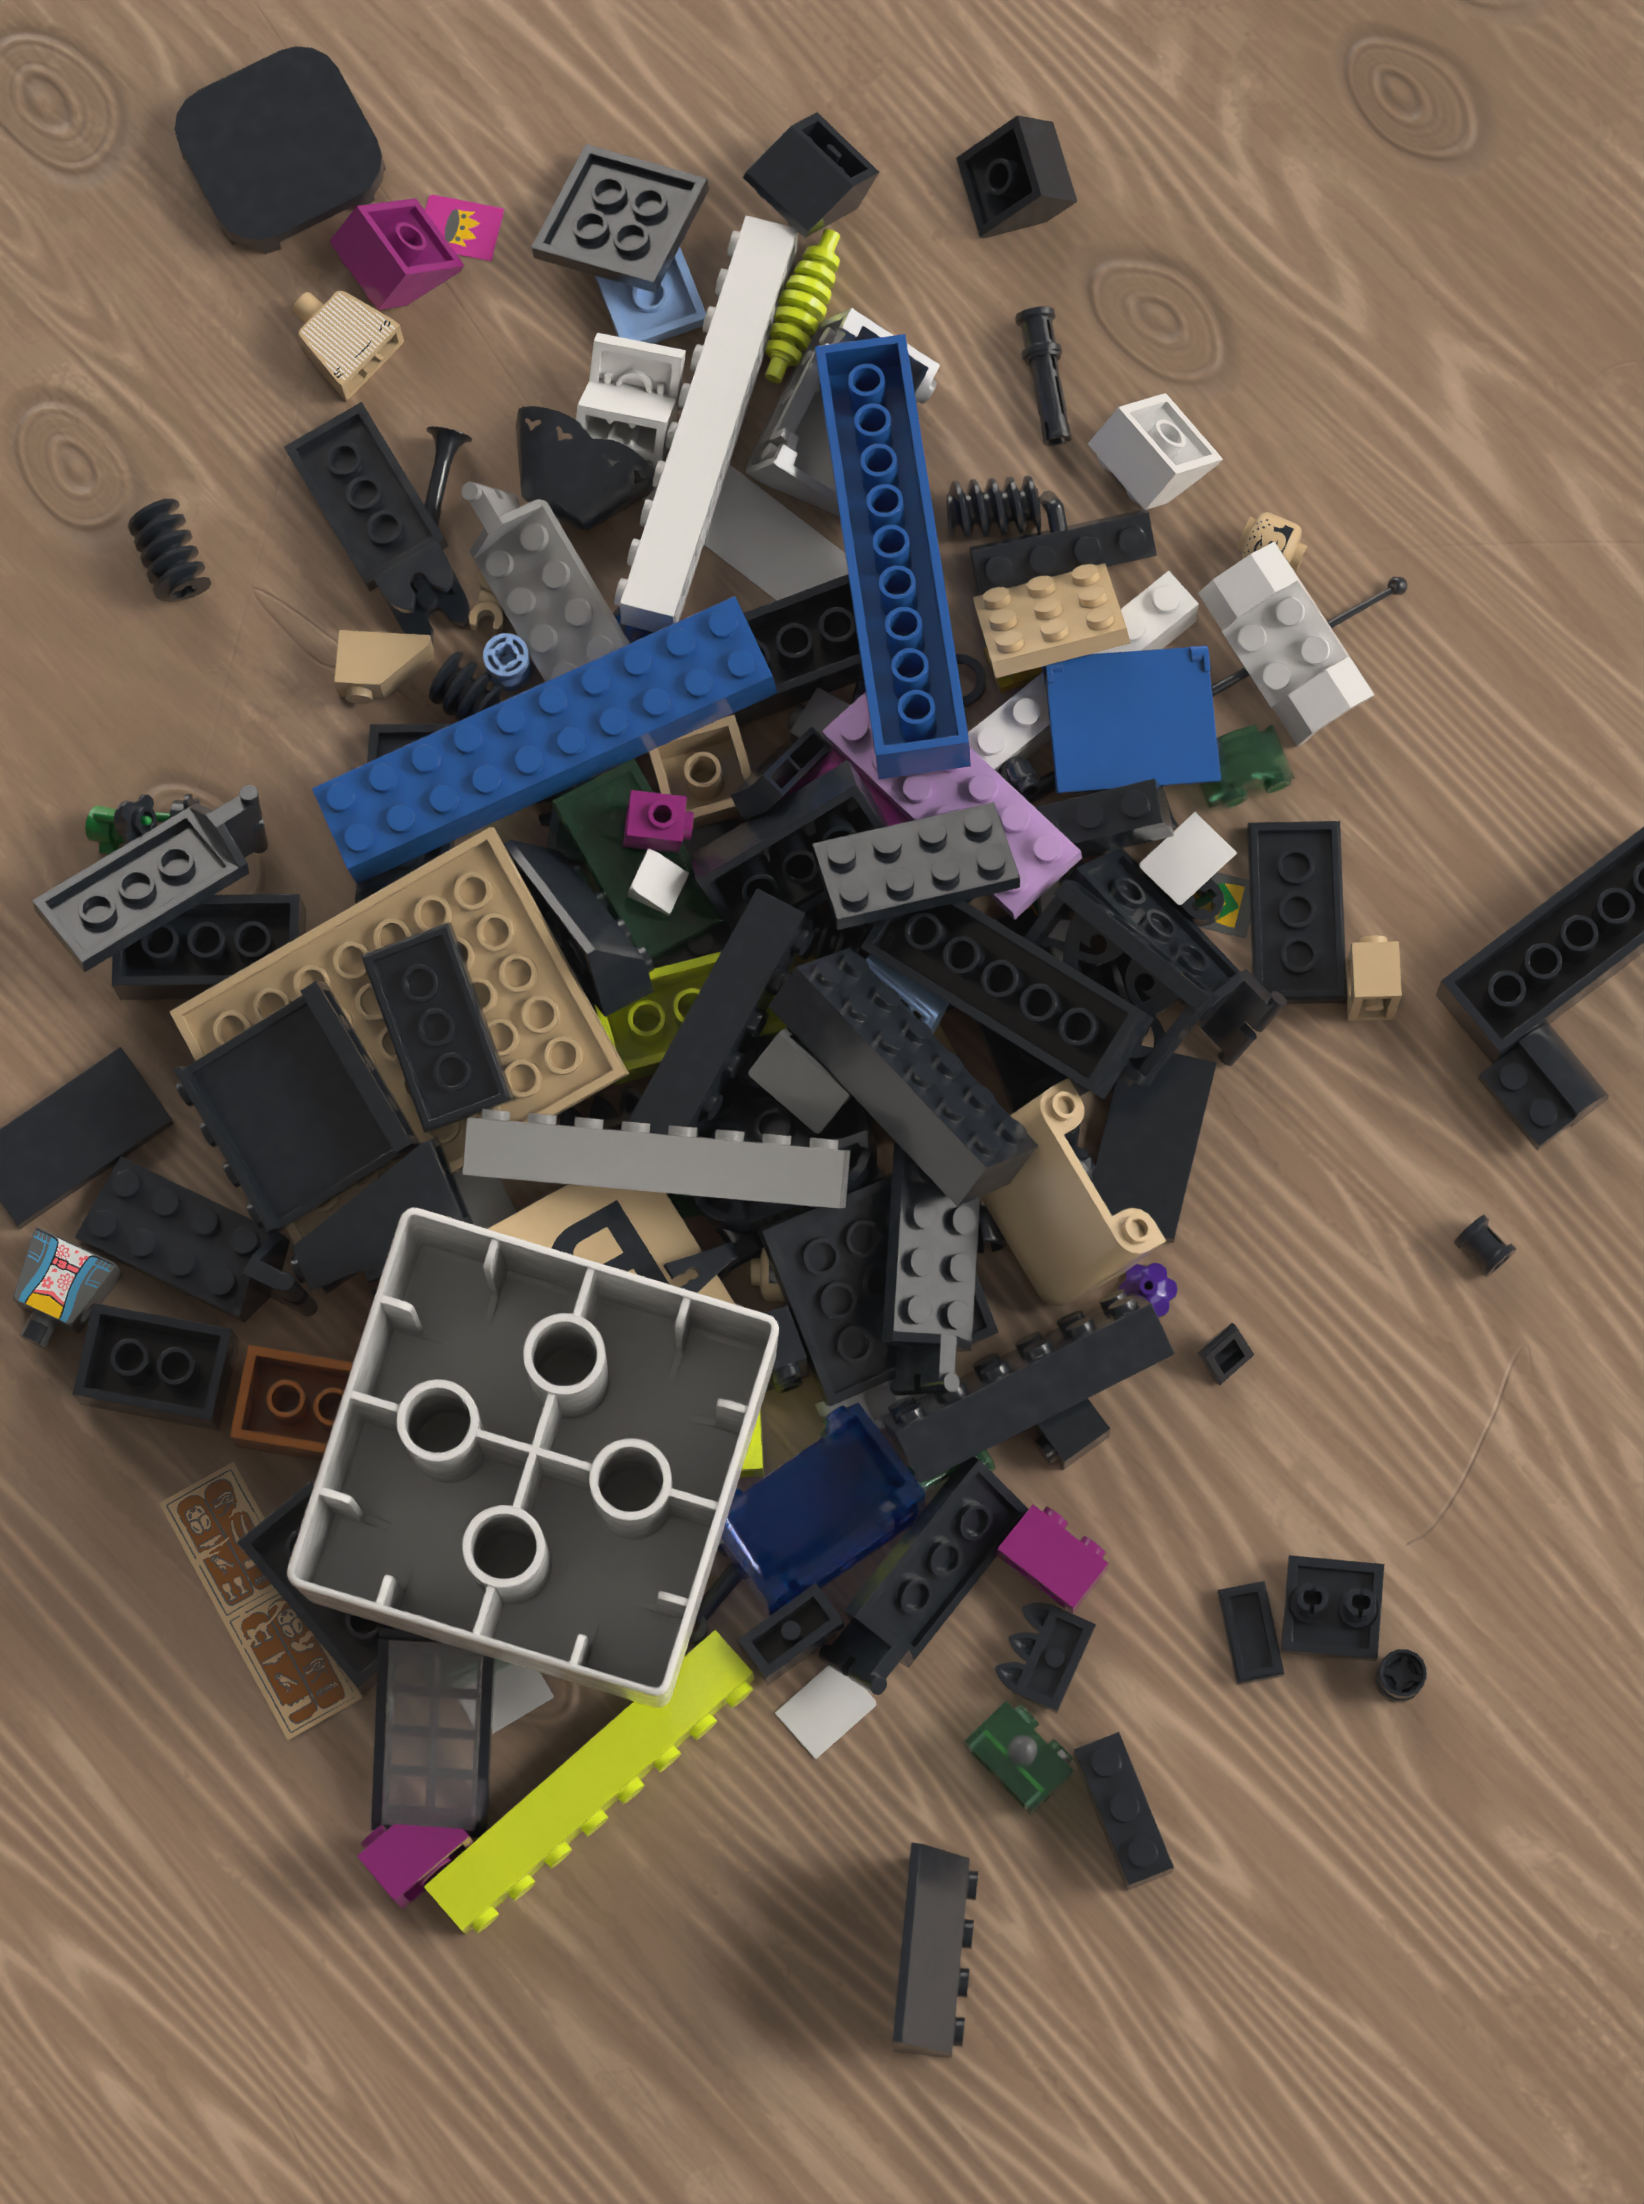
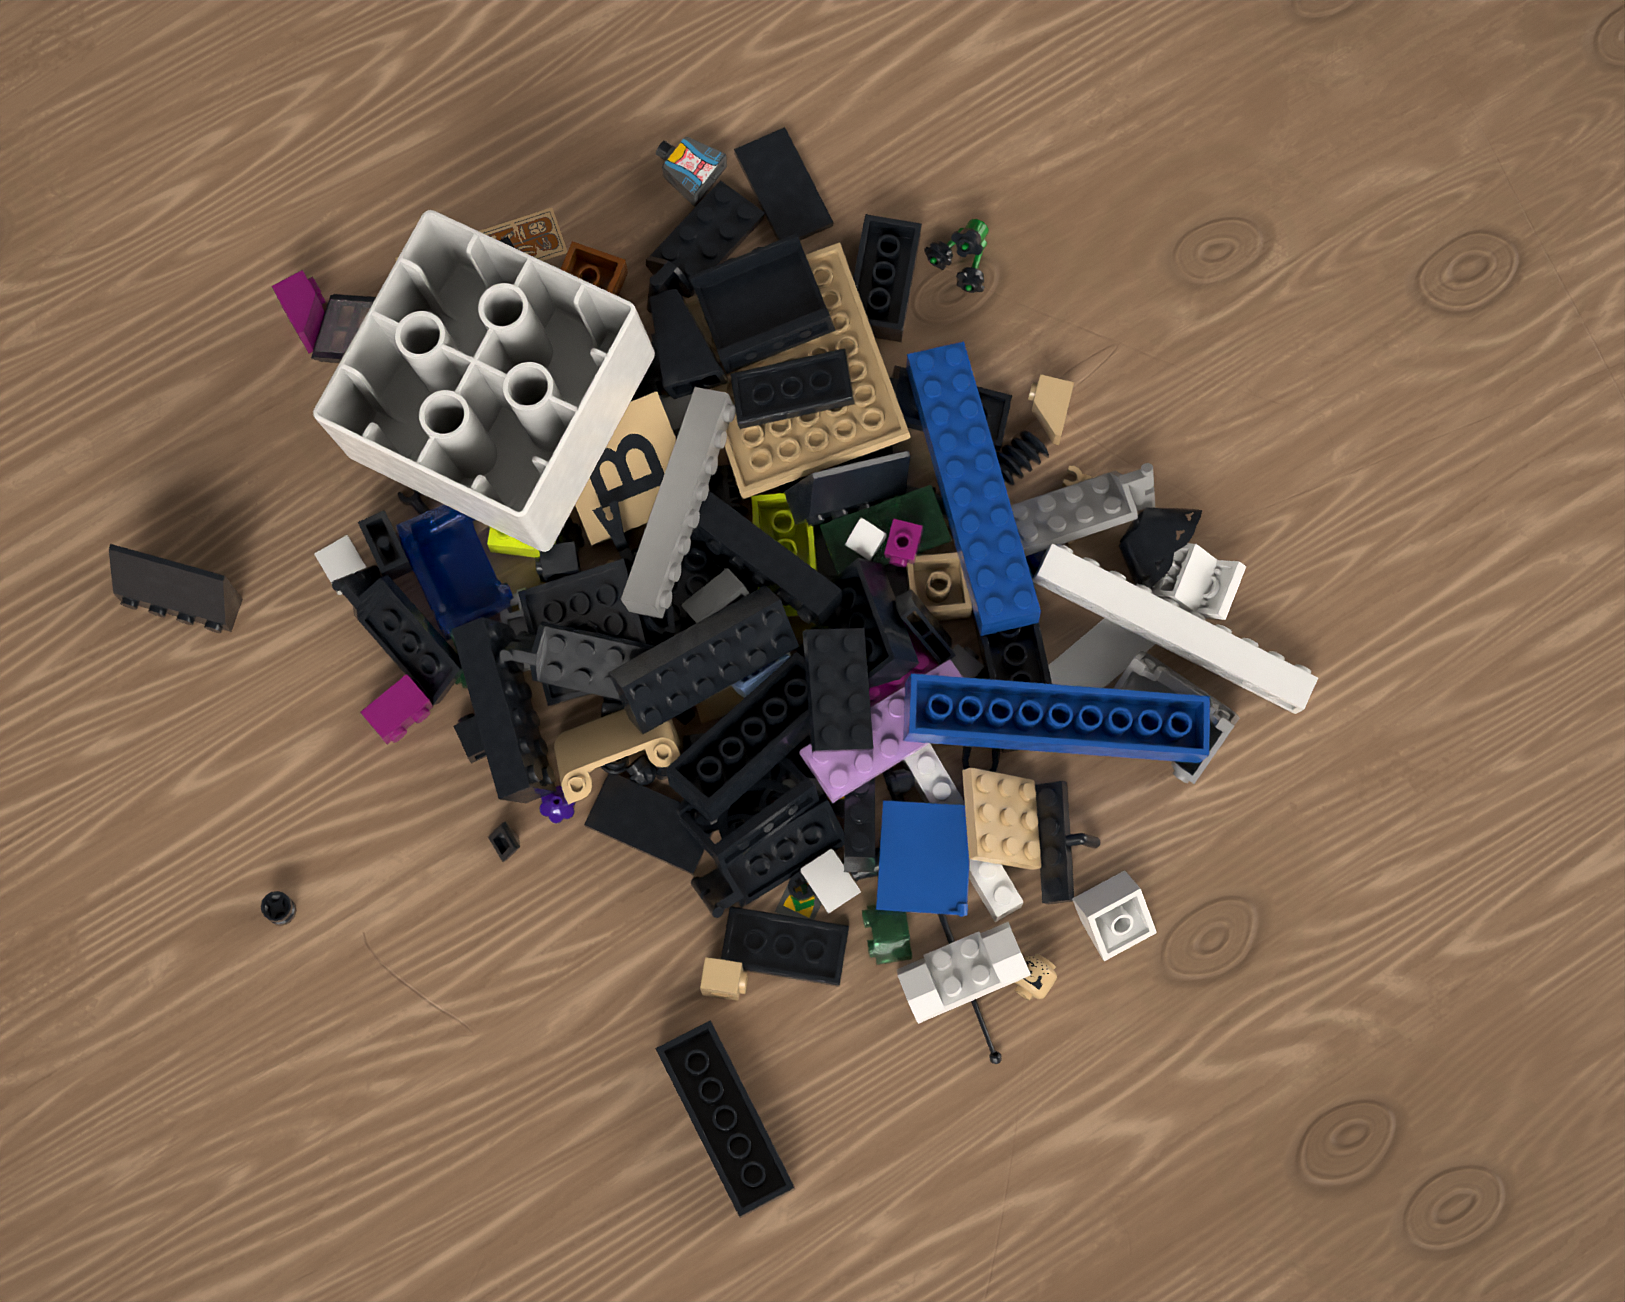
camera: 95 degrees right, 0 degrees up
(154, 878) = (924, 244): hinge -> none
(156, 1366) = (628, 211): black brick -> none
(165, 553) = (1146, 291): black piece -> none
(279, 147) = (1412, 399): black tile -> none
(346, 339) = (1273, 419): tan torso -> none
(380, 519) = (1144, 420): black hinge -> none
(395, 252) = (1329, 459): magenta slope -> none
(446, 445) = (1138, 450): black piece -> none
(466, 225) = (1344, 505): dark pink sticker -> none
(507, 671) = (1037, 487): light blue wheel -> none
(587, 1785) = (305, 387): neon yellow brick -> none
(620, 218) = (1329, 600): plate -> none
(657, 315) = (1275, 612): light blue plate -> none
(802, 305) = (1284, 725): neon yellow piece -> none
(812, 175) = (1339, 724): black slope -> none
(993, 506) = (1091, 802): black piece -> none
(1016, 177) = (1323, 862): black slope -> none
(1020, 1756) = (282, 669): clear green piece -> none
(1042, 356) = (1195, 855): black pin -> none
(1049, 1656) = (339, 698): black plate -> none
(1123, 1811) = (234, 723): black brick -> none
(1250, 1633) = (329, 824): black tile -> none
(1332, 1608) = (330, 875): black plate -> none
(1485, 1245) = (538, 1019): black bush -> none
(1543, 1086) = (635, 1079): black brick -> none

